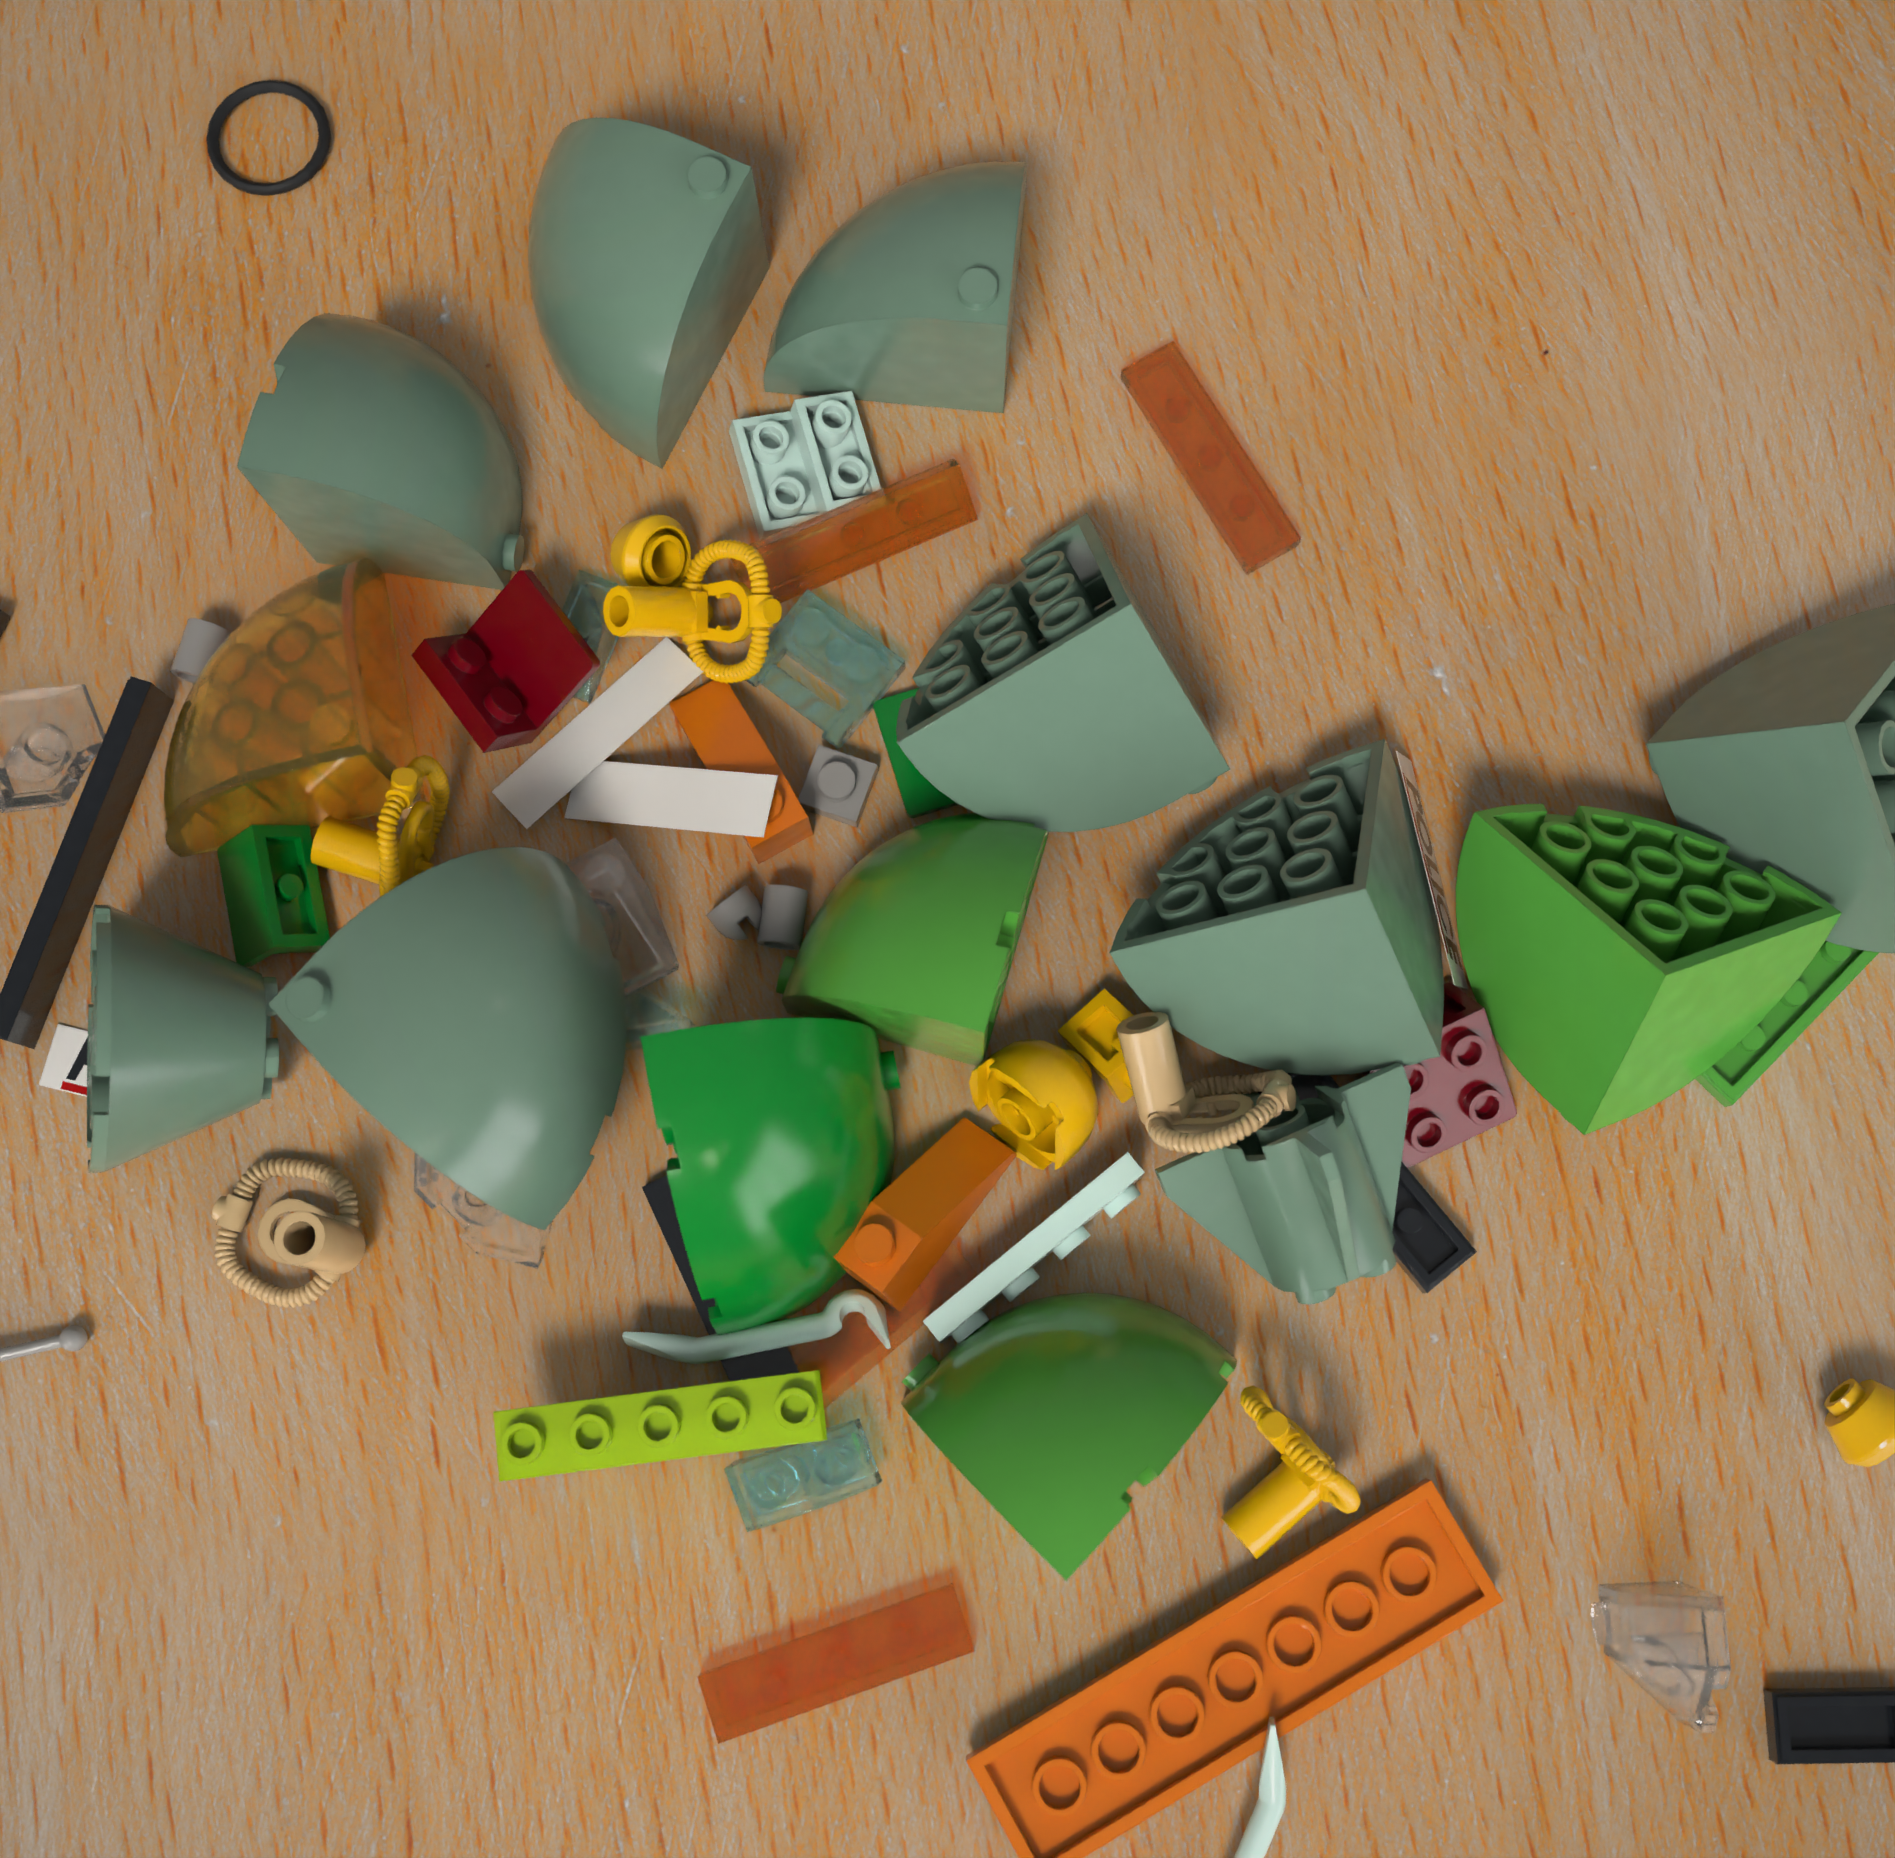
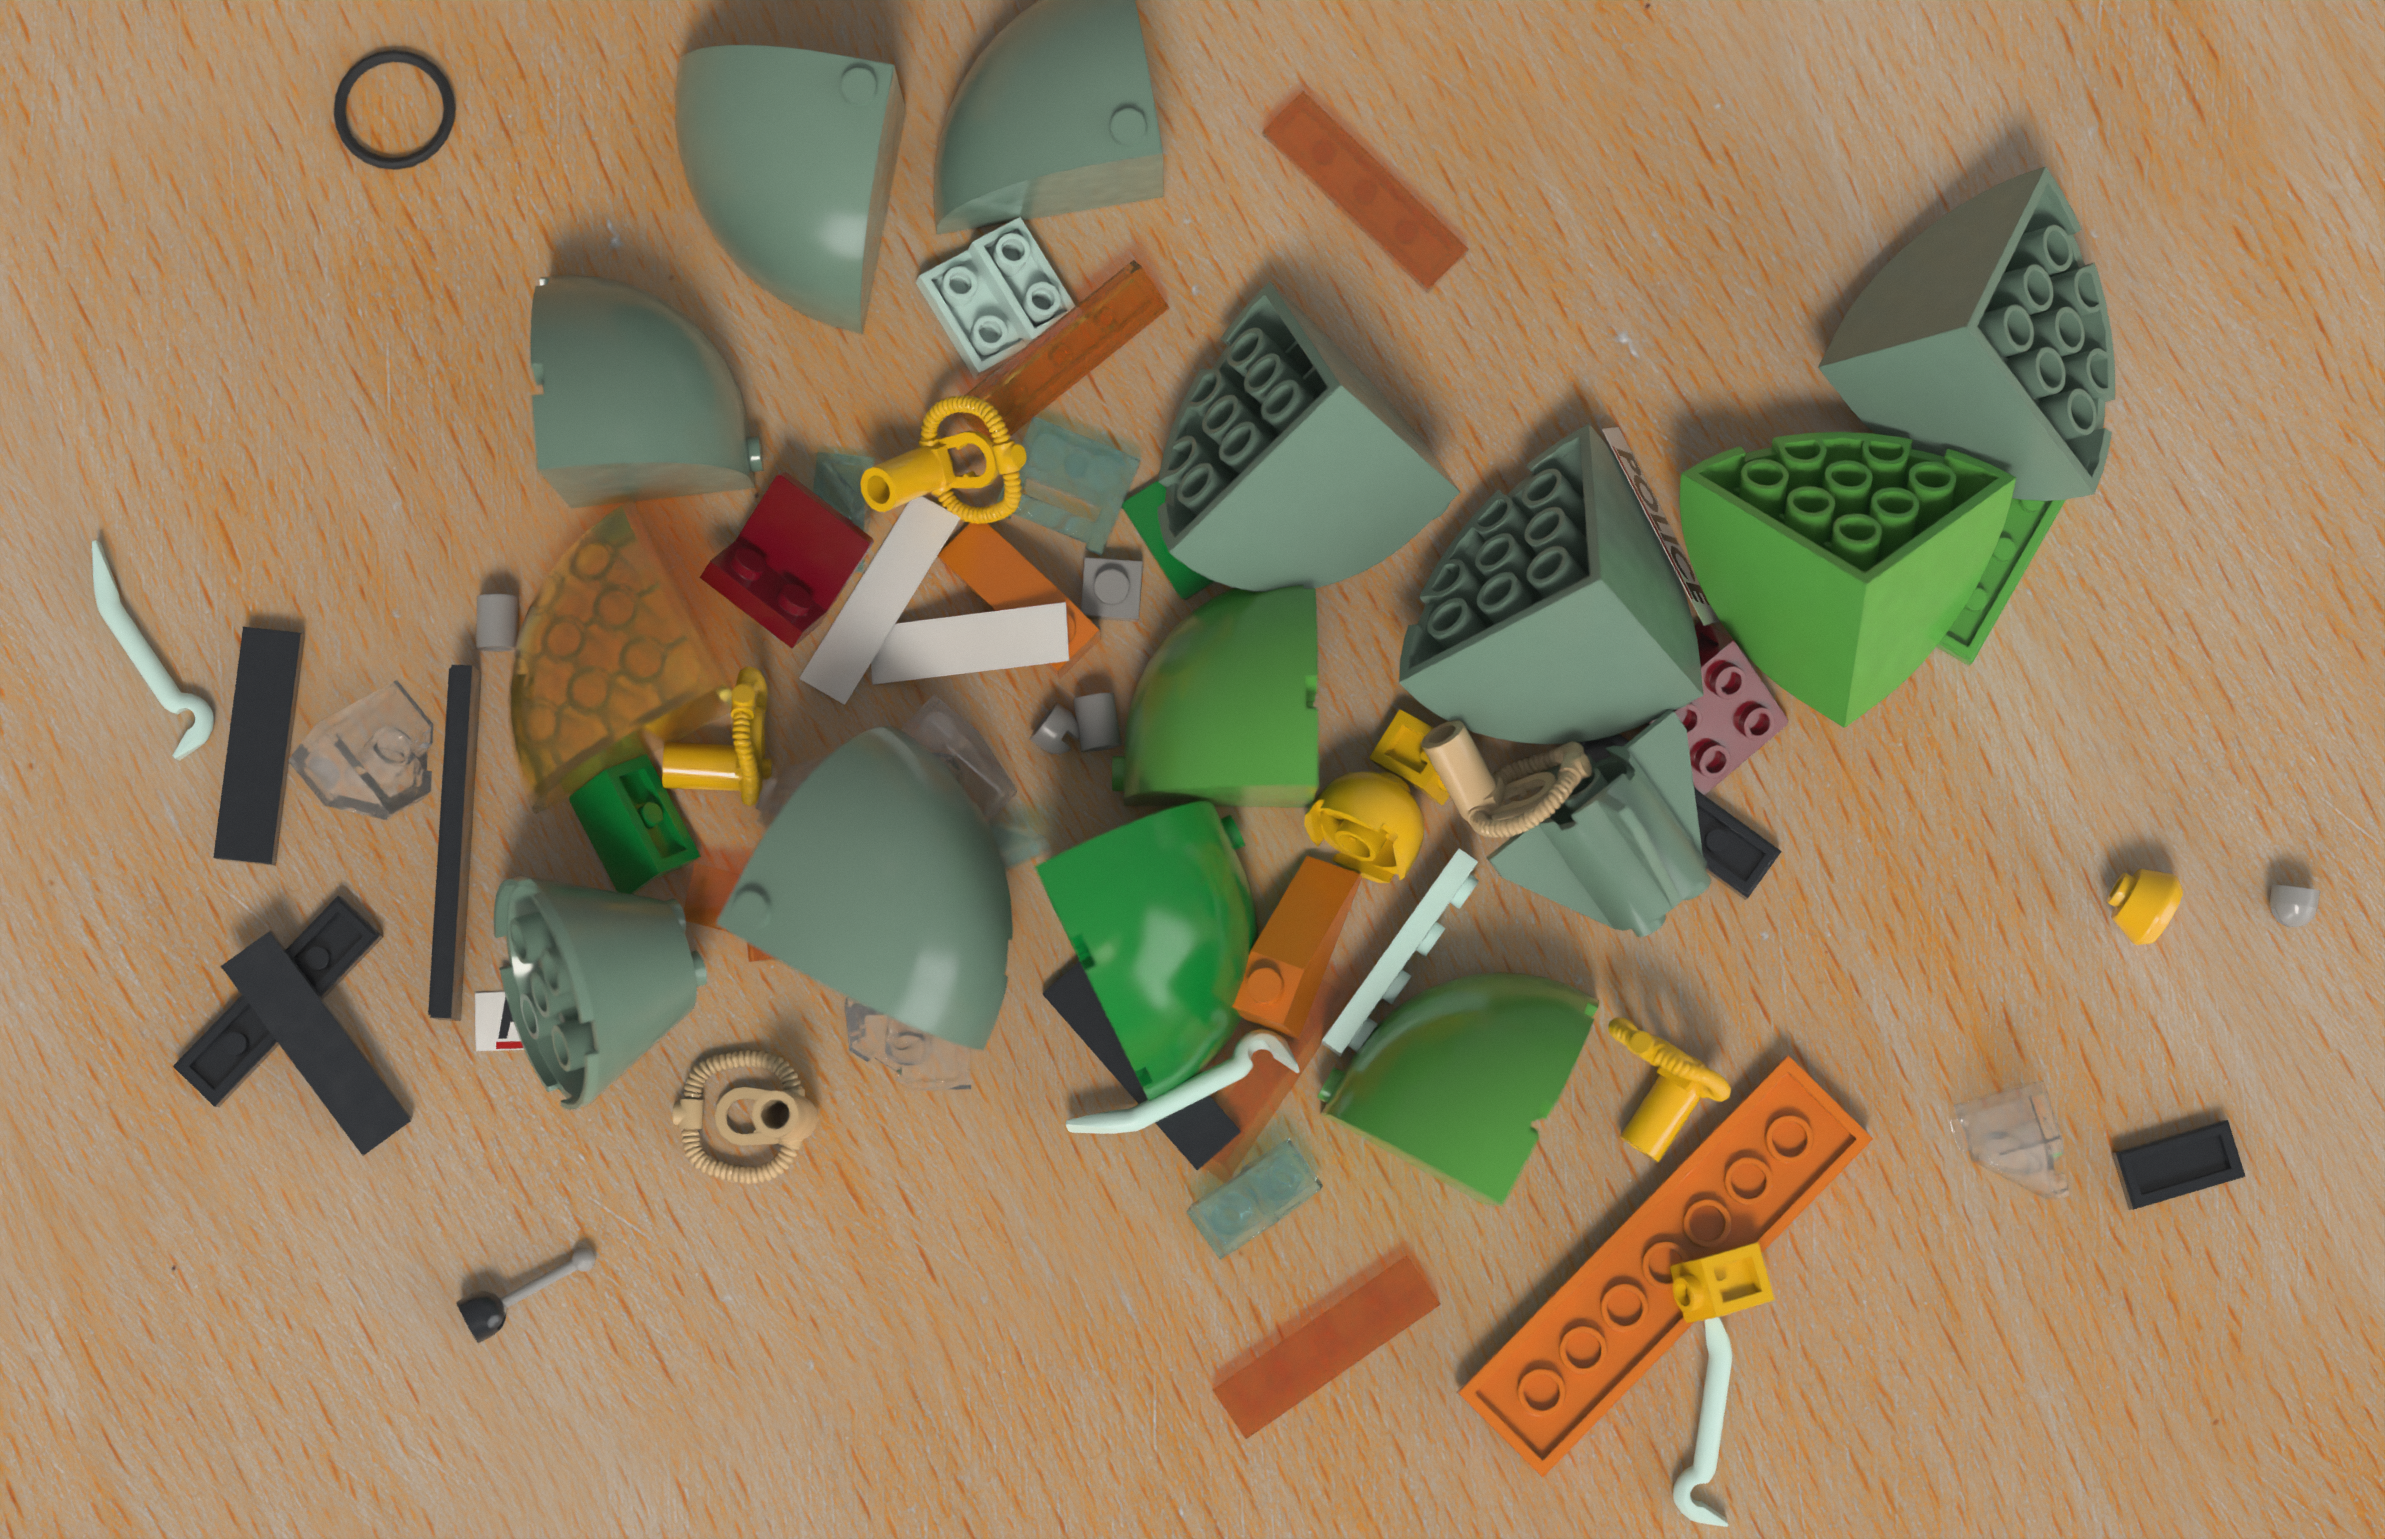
camera: 20 degrees left, 5 degrees up
(651, 552) = (883, 423): yellow cone -> none
(659, 1425) = (1126, 1186): lime slope -> none
(1294, 1723) = (1721, 1283): none -> yellow bracket

